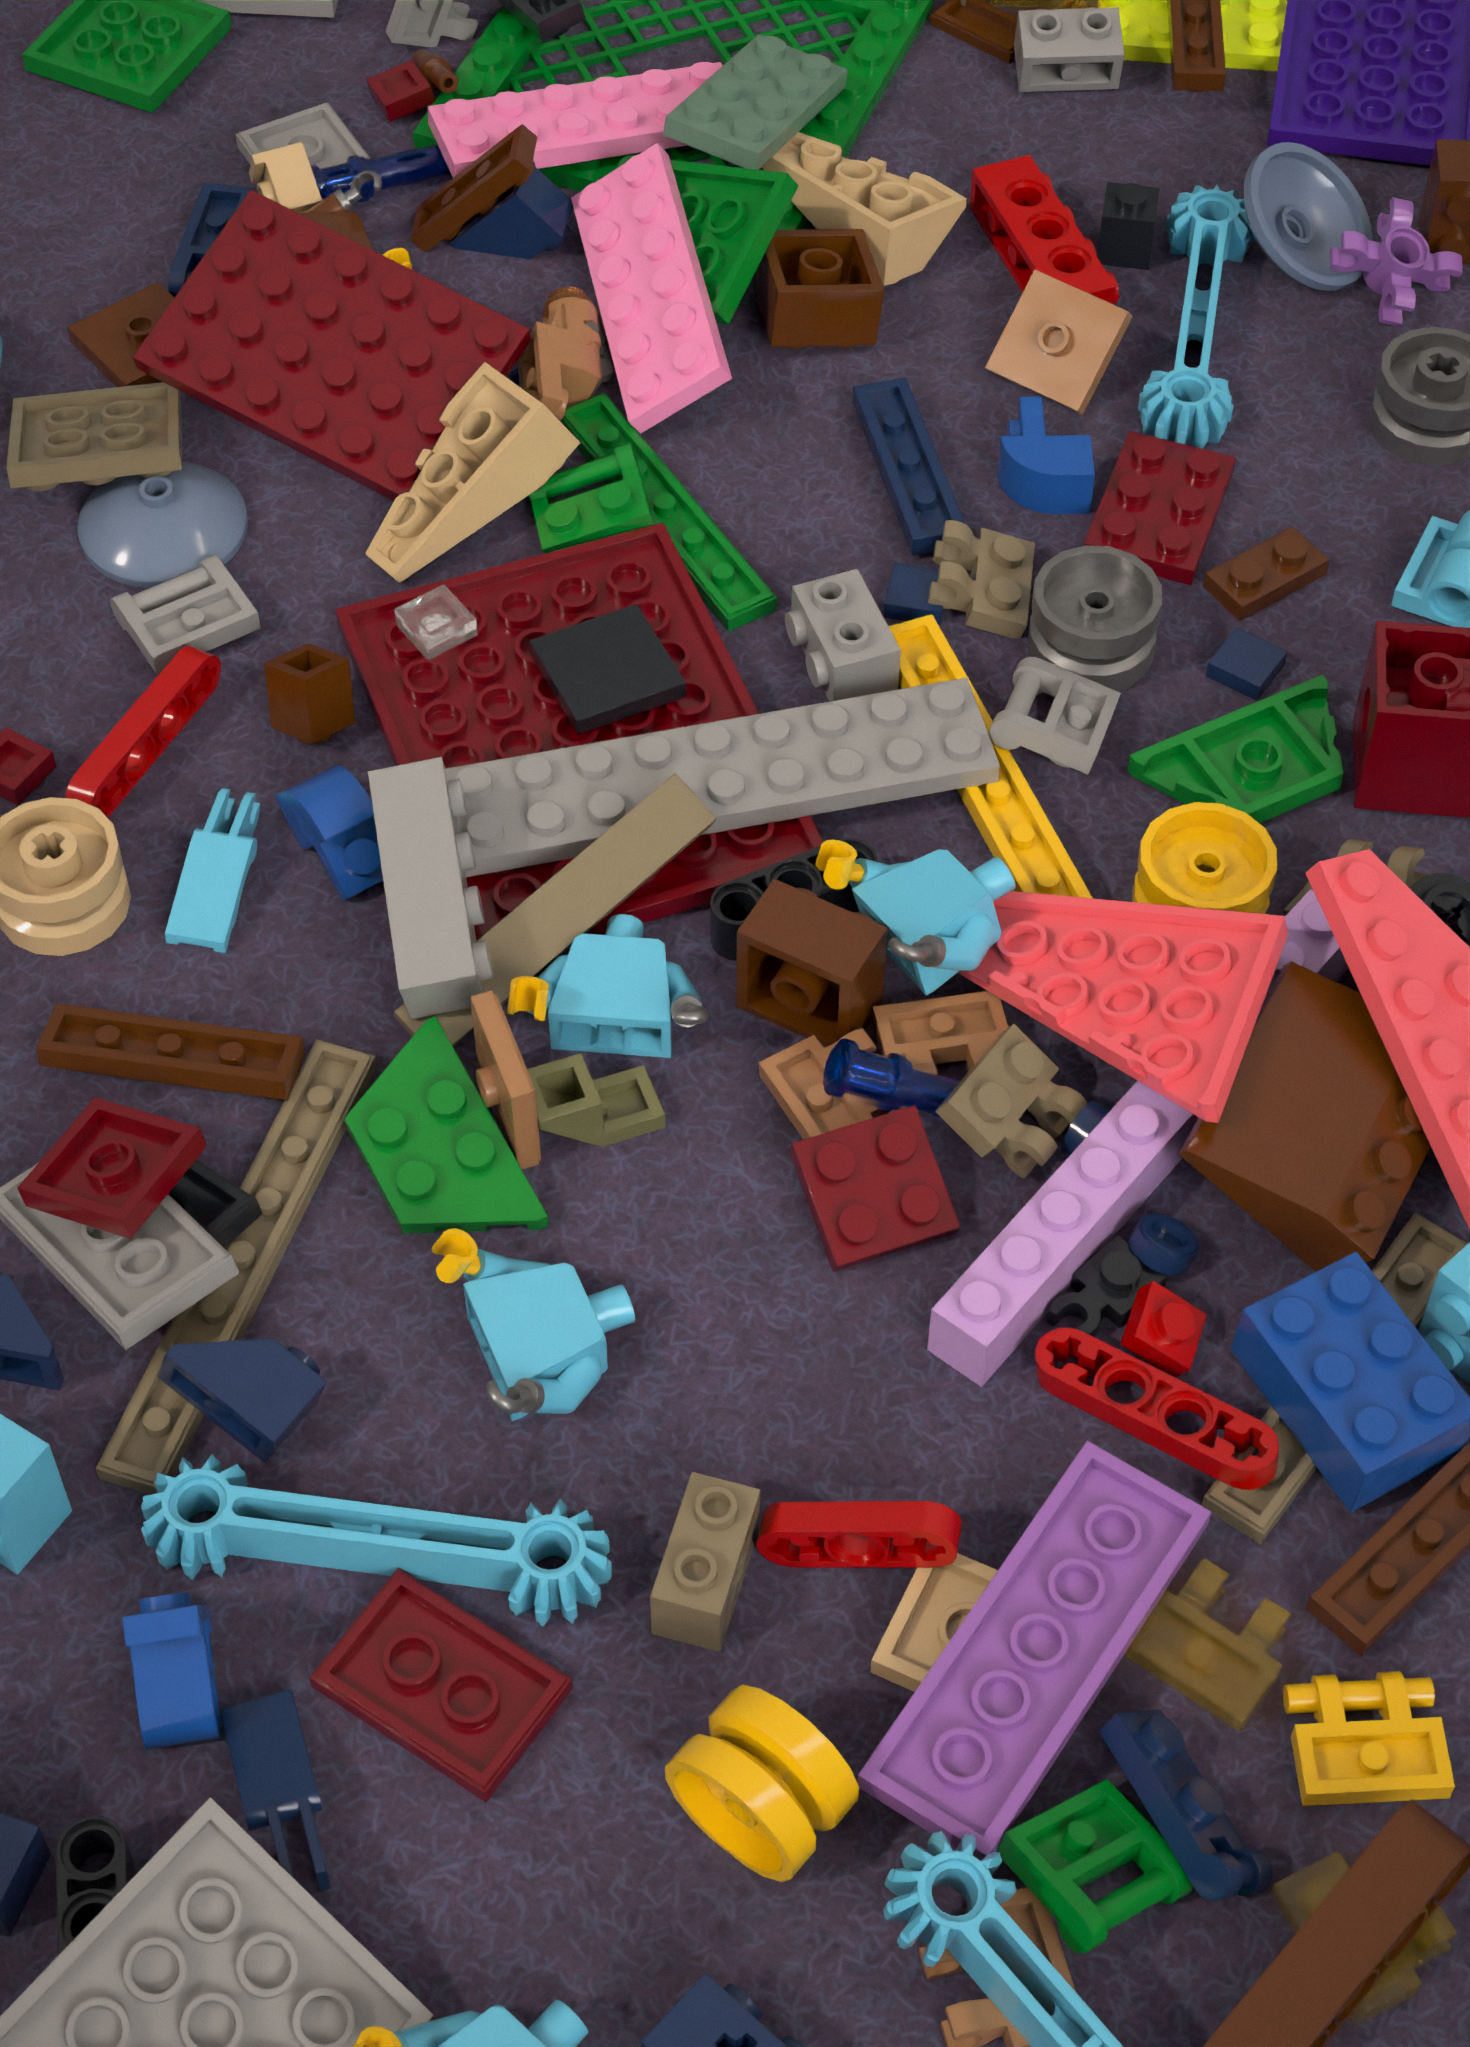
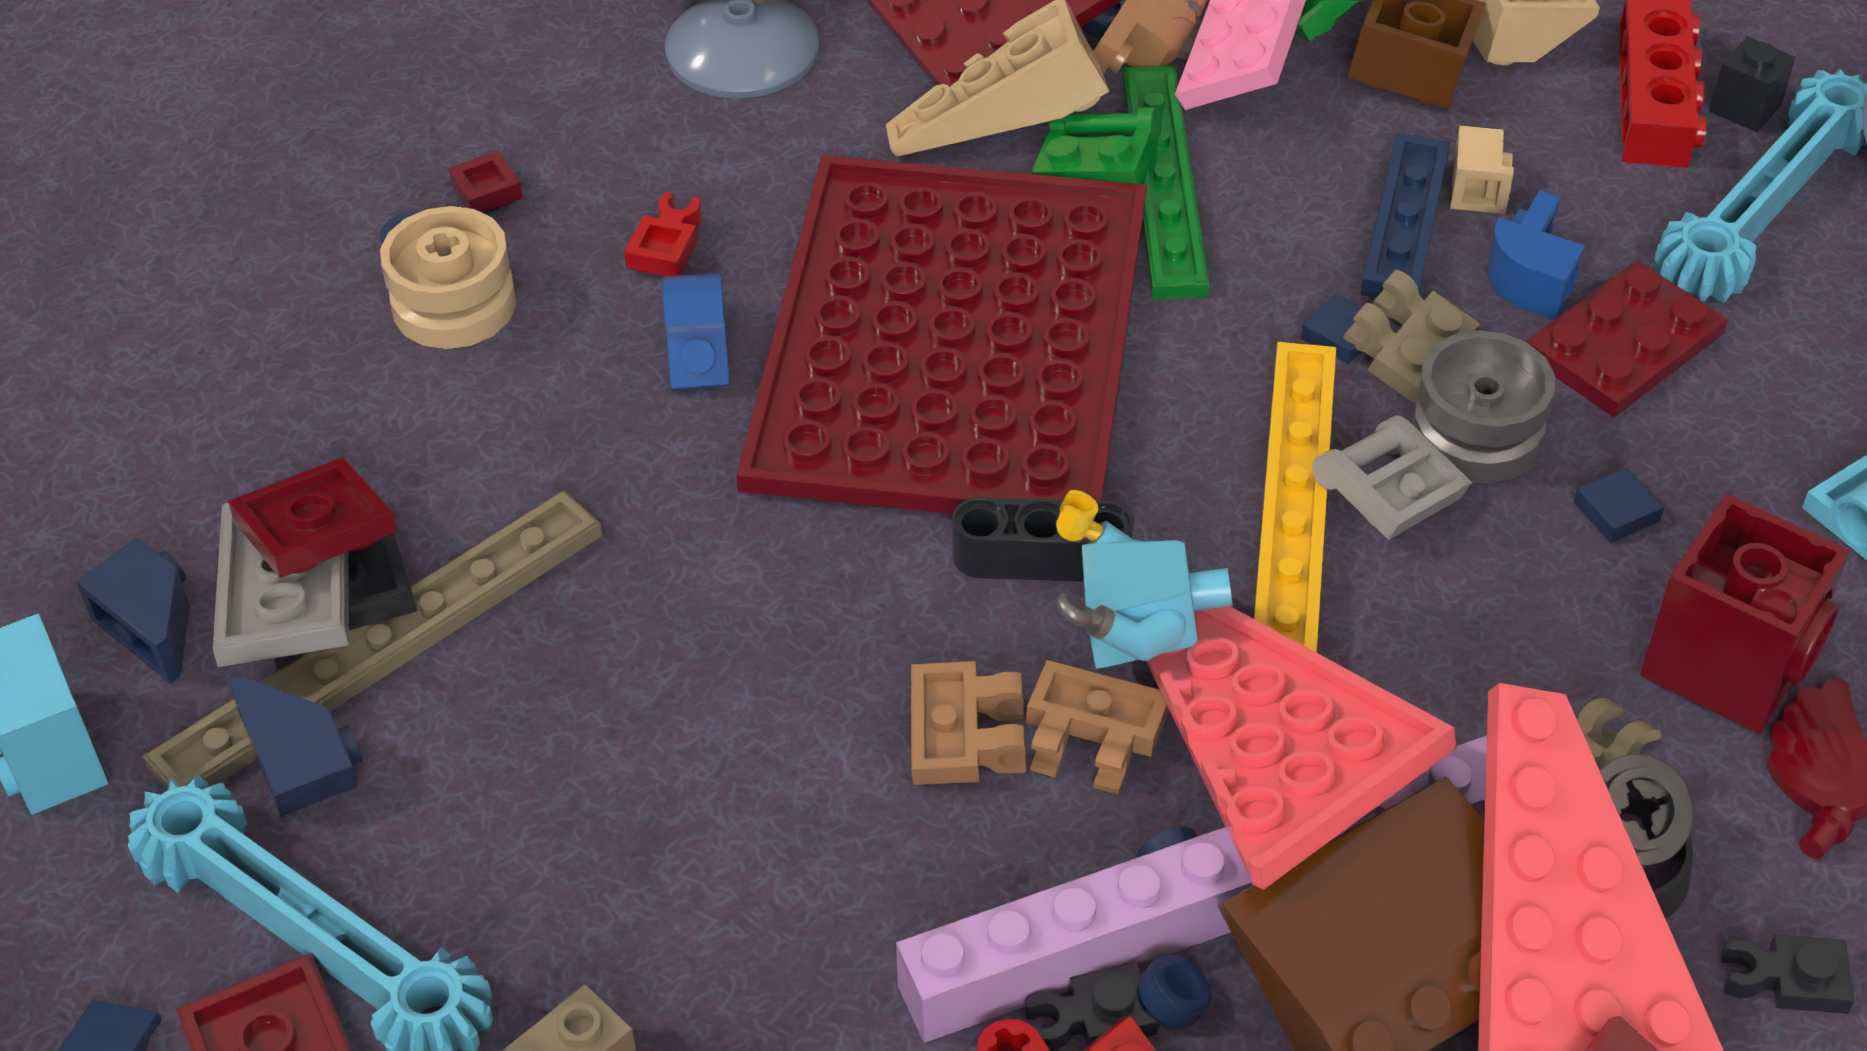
camera: 30 degrees right, 5 degrees down
(146, 730) = (659, 169): red beam -> none
(171, 1051) = (442, 451): reddish brown plate -> none
(173, 1671) = (68, 942): blue pin -> none
(191, 609) = (704, 119): light grey plate -> none
(214, 875) = (579, 324): medium azure arm -> none
(236, 752) = (665, 242): none -> red plate
(309, 693) = (748, 212): reddish brown brick -> none
(427, 887) = (711, 396): light grey brick -> none
(436, 622) = (887, 191): clear plate -> none
(438, 1145) = (596, 617): green wing -> none
(505, 1079) = (674, 583): medium nougat plate -> none
(533, 1325) = (558, 802): medium azure torso -> none
(582, 894) = (817, 467): dark tan tile -> none
(596, 1109) = (721, 627): olive slope -> none
(607, 669) = (1008, 284): black tile -> none
(611, 994) = (821, 551): medium azure torso -> none
(739, 768) = (1020, 404): light grey plate -> none
(809, 964) = (1002, 594): reddish brown brick -> none
(843, 637) = (1238, 337): light grey brick -> none
(874, 1188) = (937, 818): dark red plate -> none
(884, 1080) = (1004, 729): clear blue pin -> none
(948, 396) = (1481, 171): none -> tan brick
(998, 1091) = (1100, 779): dark tan plate -> none
(1058, 341) = (1614, 158): medium nougat plate -> none
(1206, 860) = (1437, 658): yellow wheel -> none
(1252, 758) = (1563, 590): green wing -> none
(1266, 573) = (1693, 432): reddish brown plate -> none

